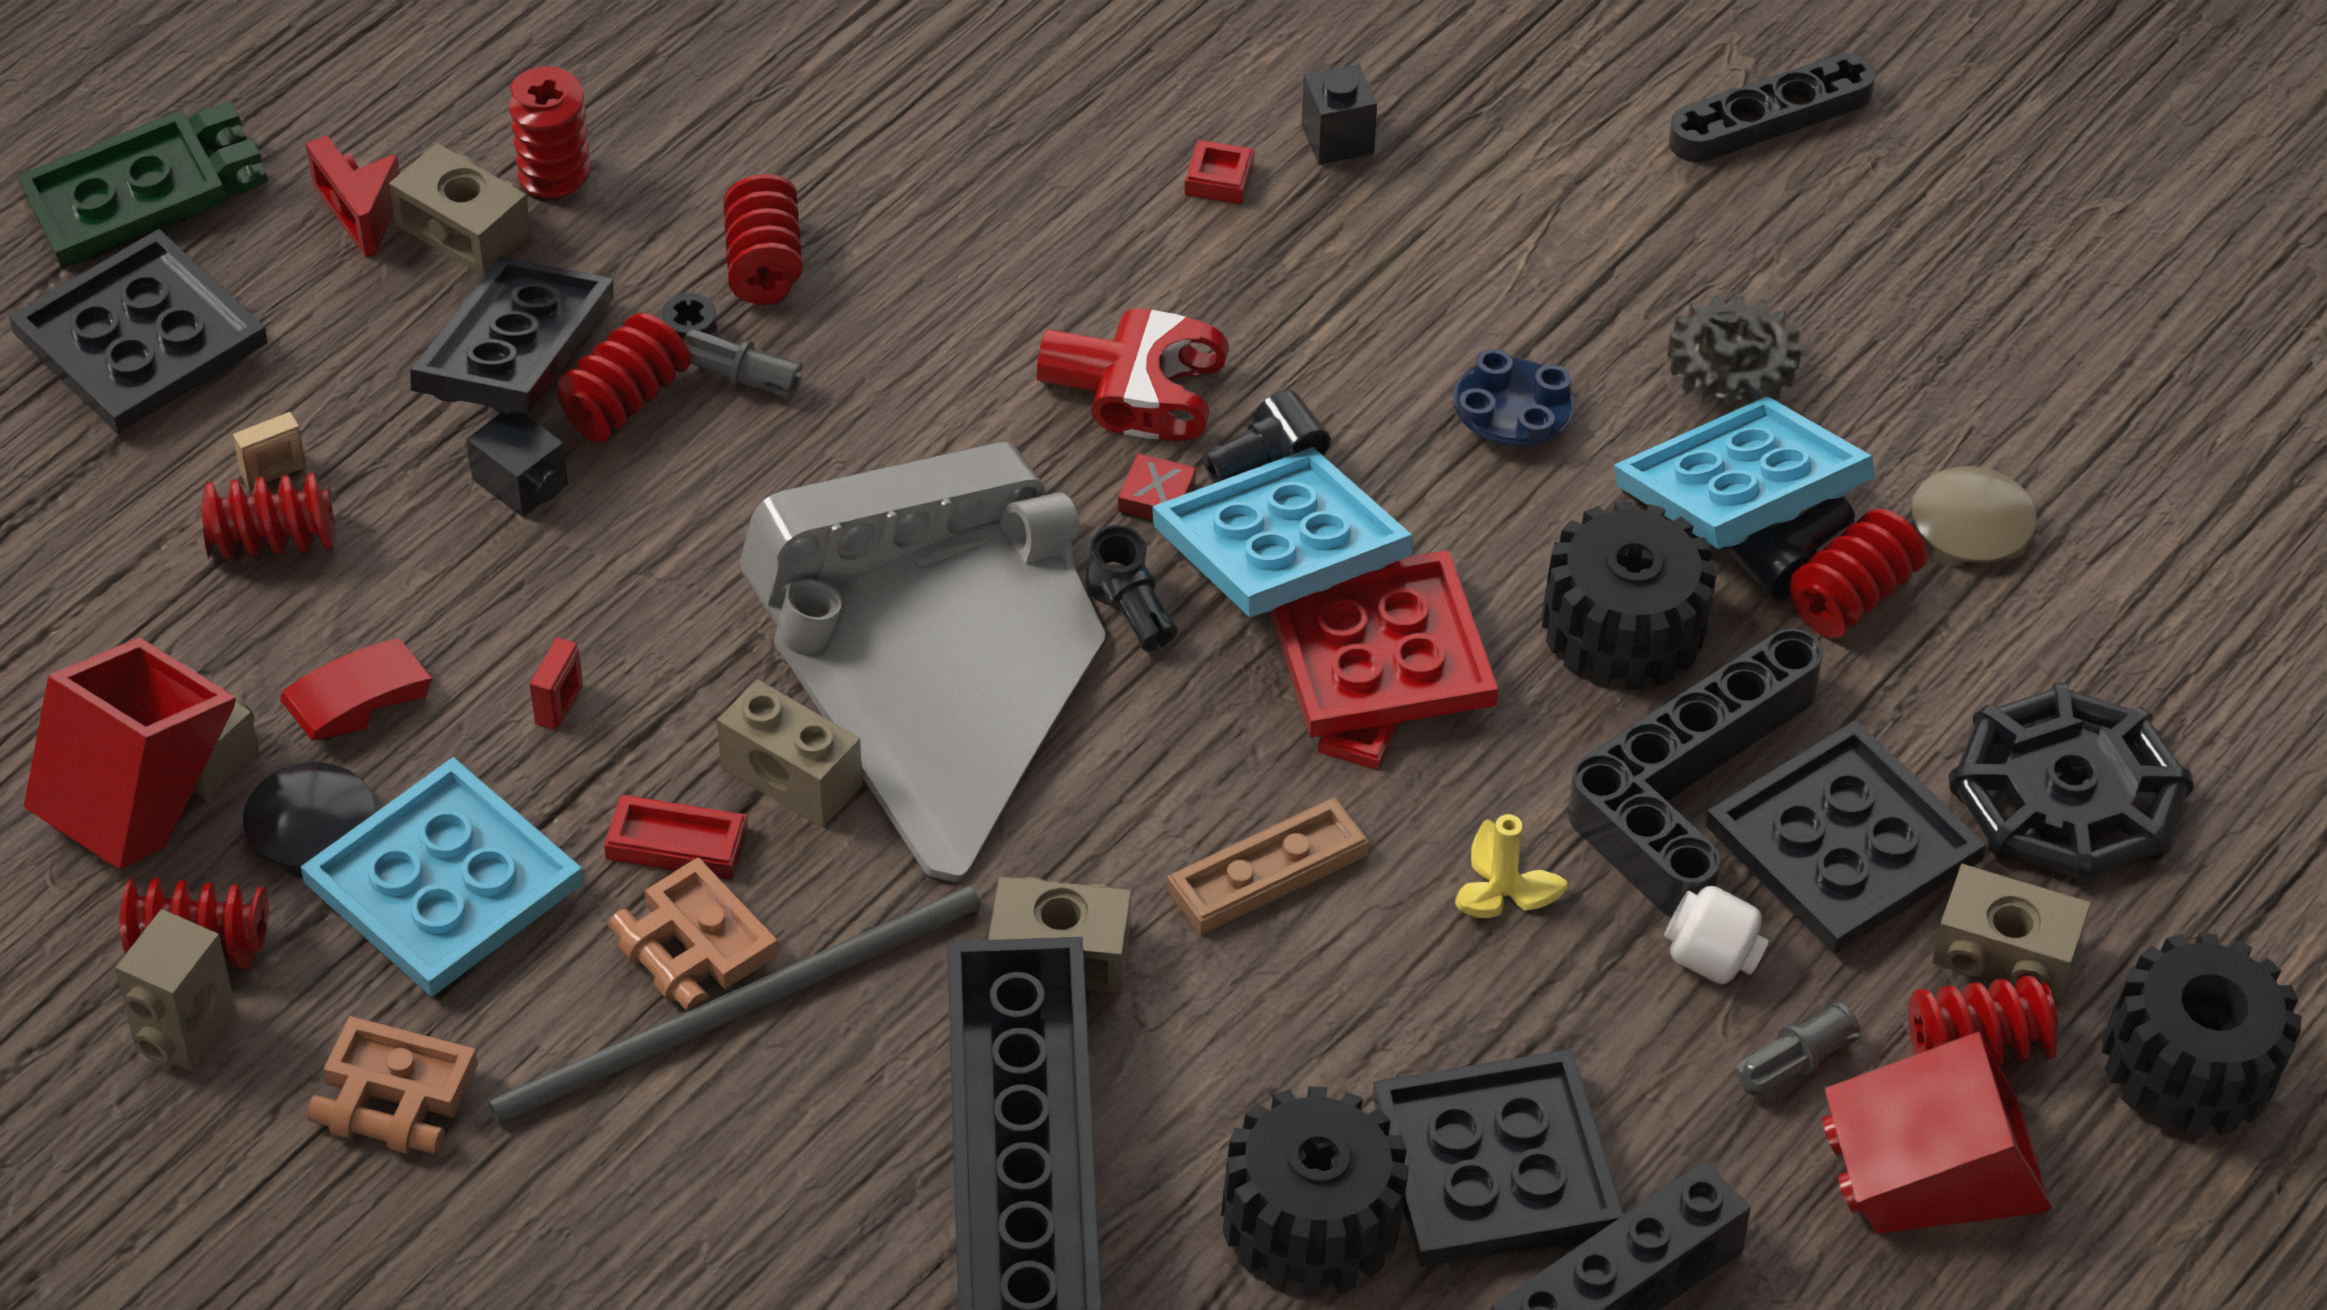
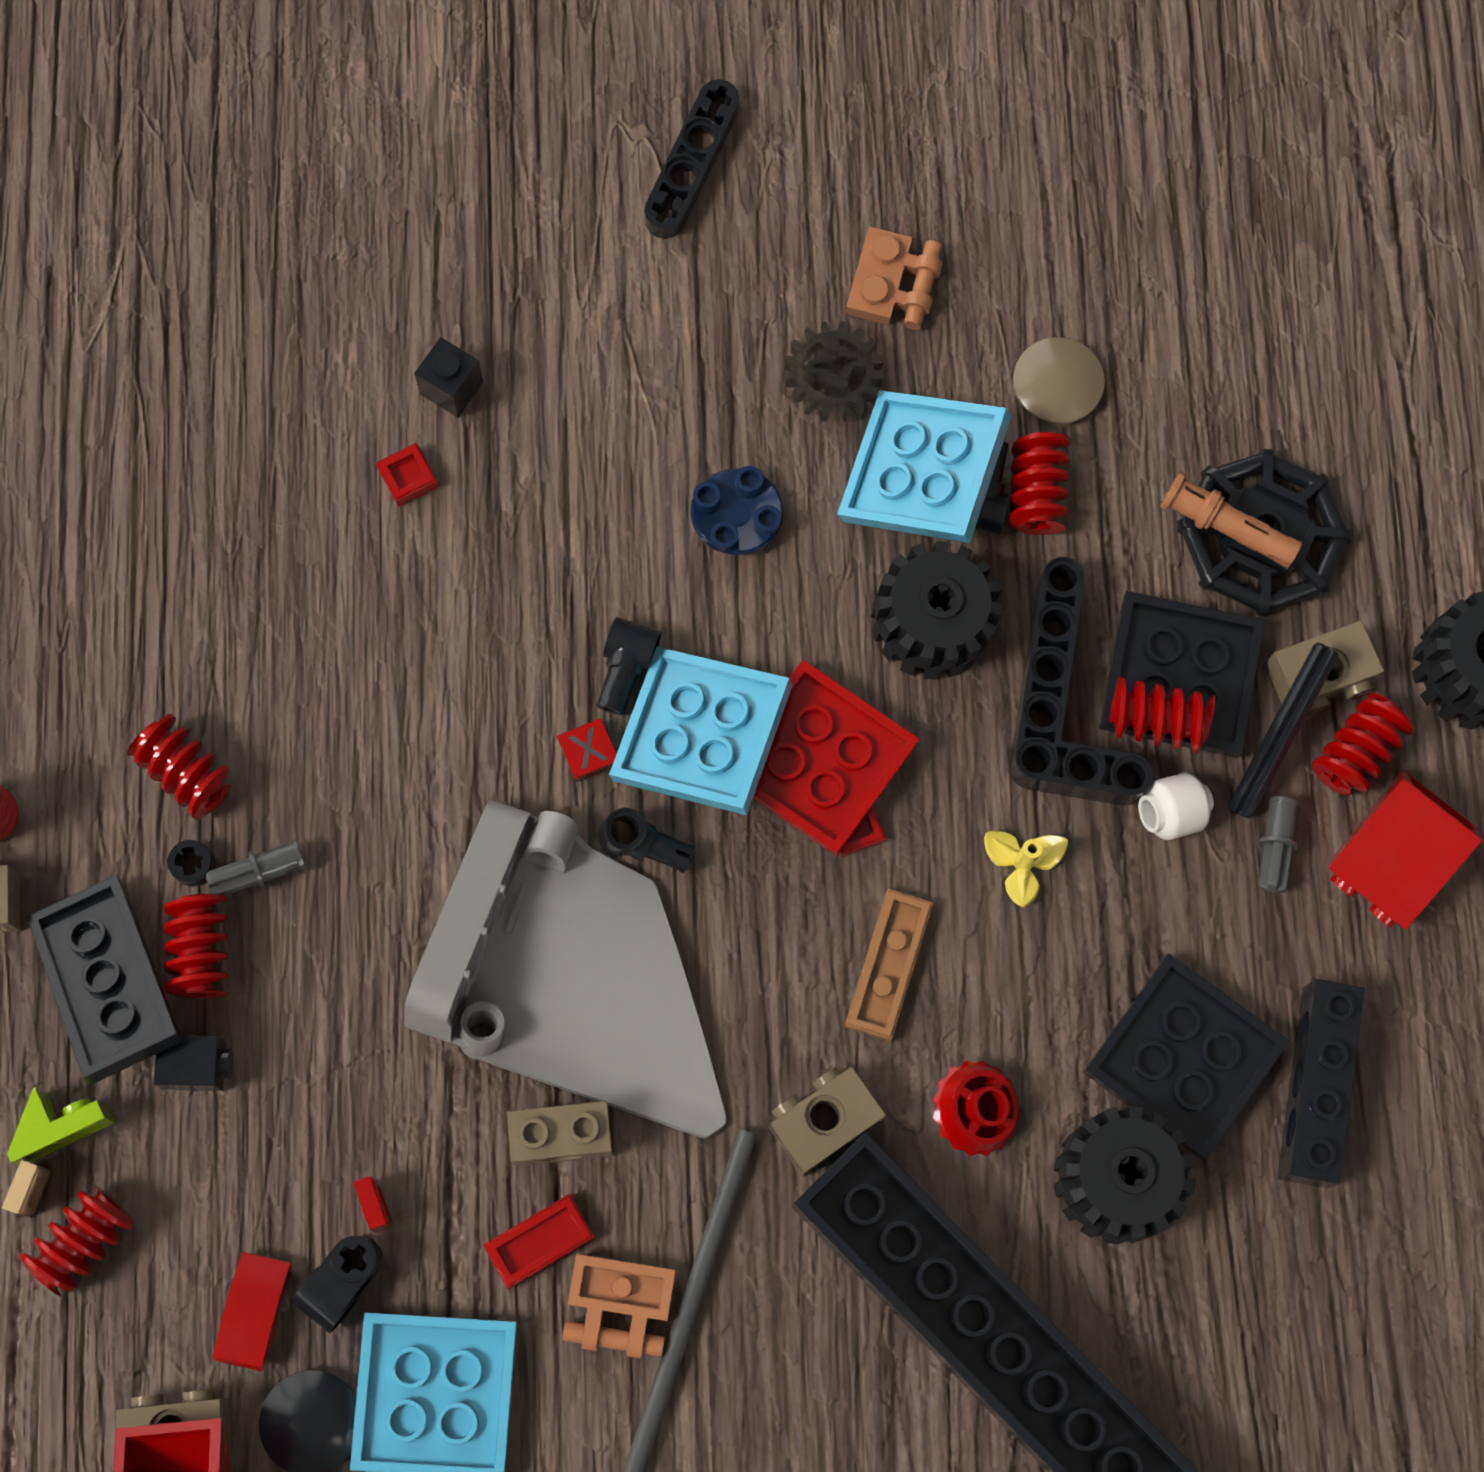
camera: 45 degrees left, 25 degrees up
(342, 426) = (44, 1133): none -> lime slope
(457, 719) = (333, 1287): none -> black piece
(1136, 372) = (498, 679): red connector -> none
(1225, 1038) = (976, 1108): none -> red piece
(1774, 826) = (1161, 714): none -> red piece
(1872, 315) = (879, 276): none -> nougat plate
(1899, 936) = (1283, 730): none -> black axle
(2018, 702) = (1210, 510): none -> nougat pin

